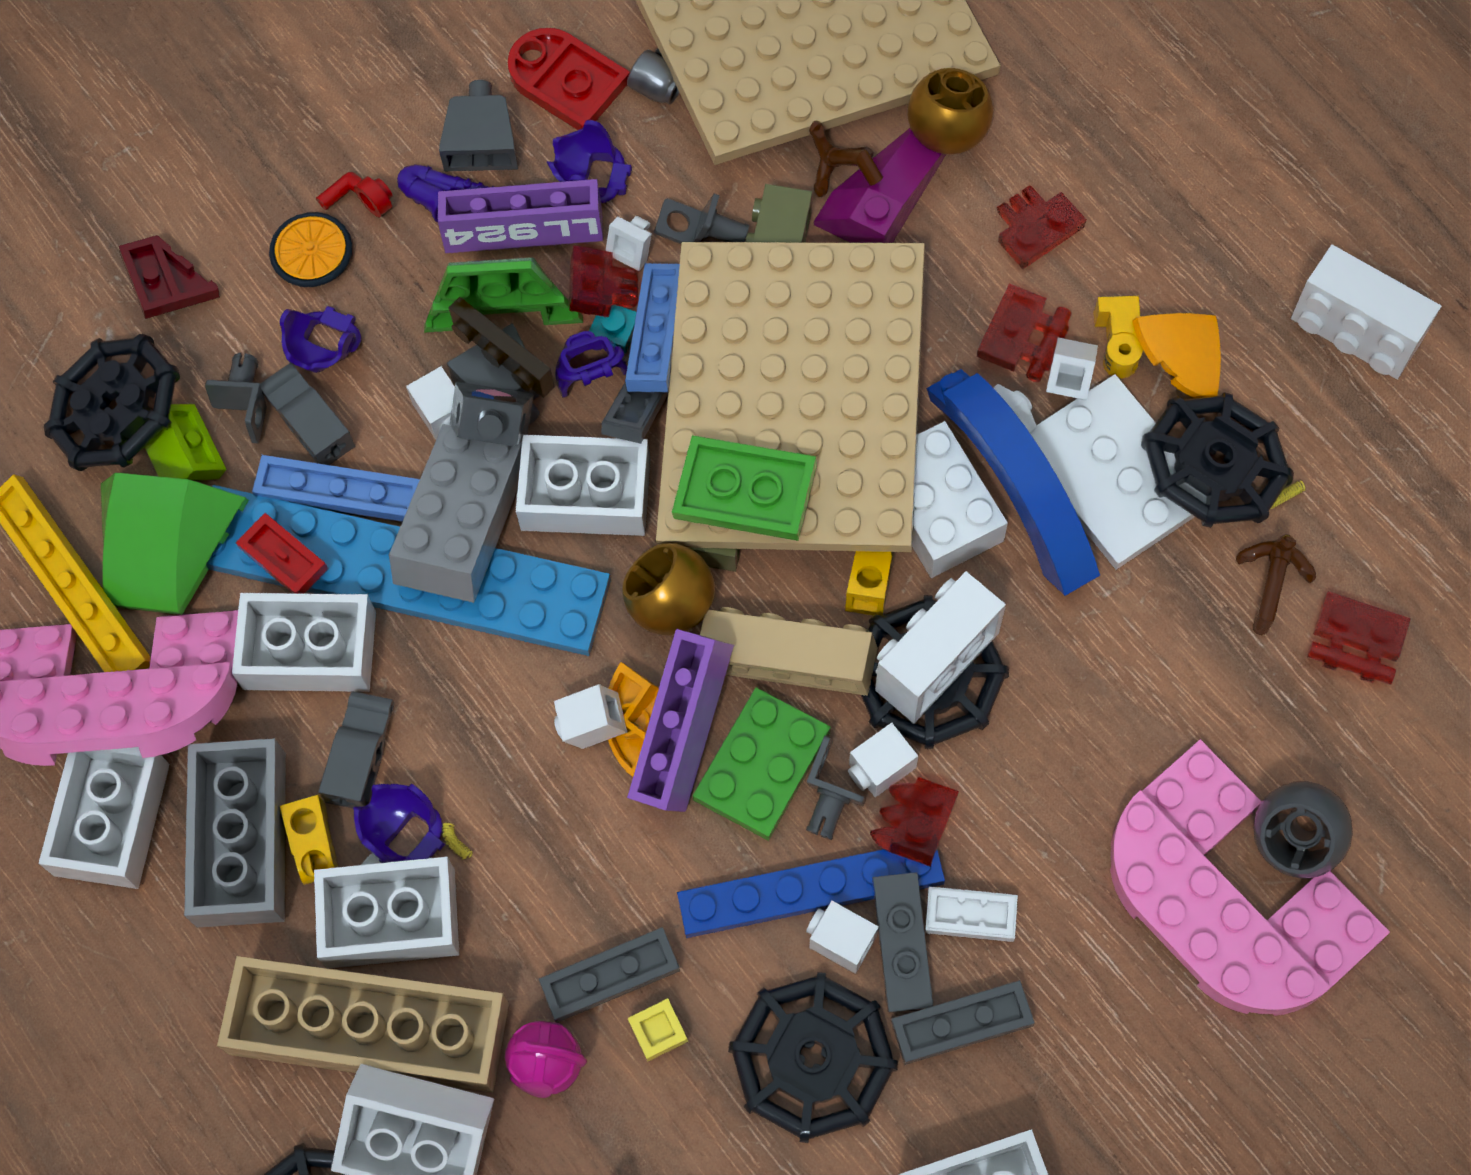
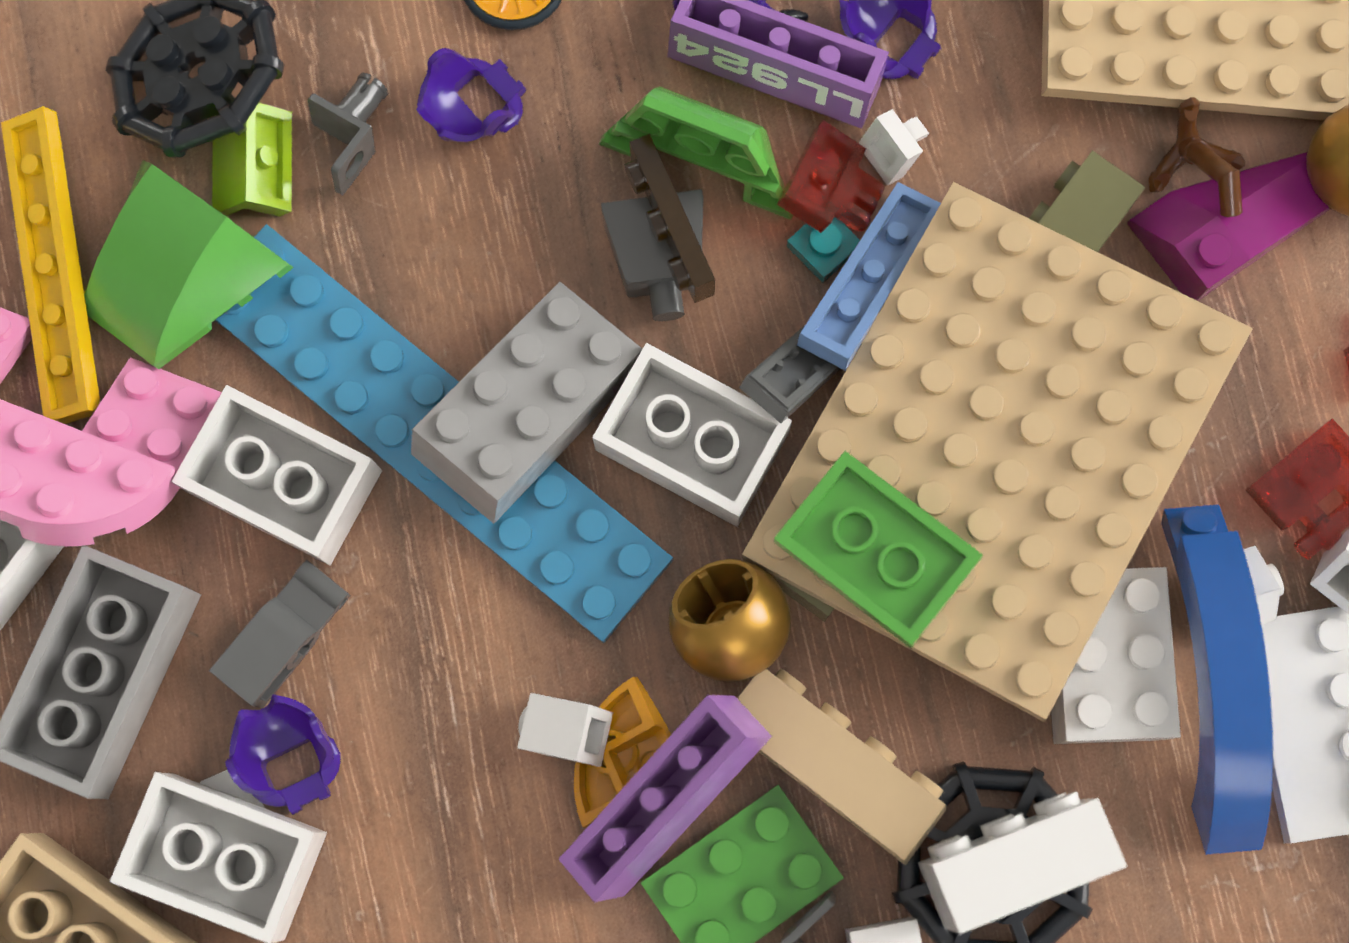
camera: 25 degrees right, 10 degrees up
(281, 555) = (298, 357): red plate -> none
(307, 415) = (412, 188): dark grey piece -> none
(309, 836) = (178, 718): yellow leg -> none
(335, 487) = (404, 295): medium blue plate -> none
(433, 399) = (571, 247): white brick -> none
(452, 841) = (342, 783): light yellow leg -> none
(490, 414) = (619, 300): dark grey torso -> none
(582, 342) = (767, 254): dark purple helmet -> none
(700, 223) = (989, 163): dark grey bracket -> none
(868, 582) = (973, 723): yellow leg -> none

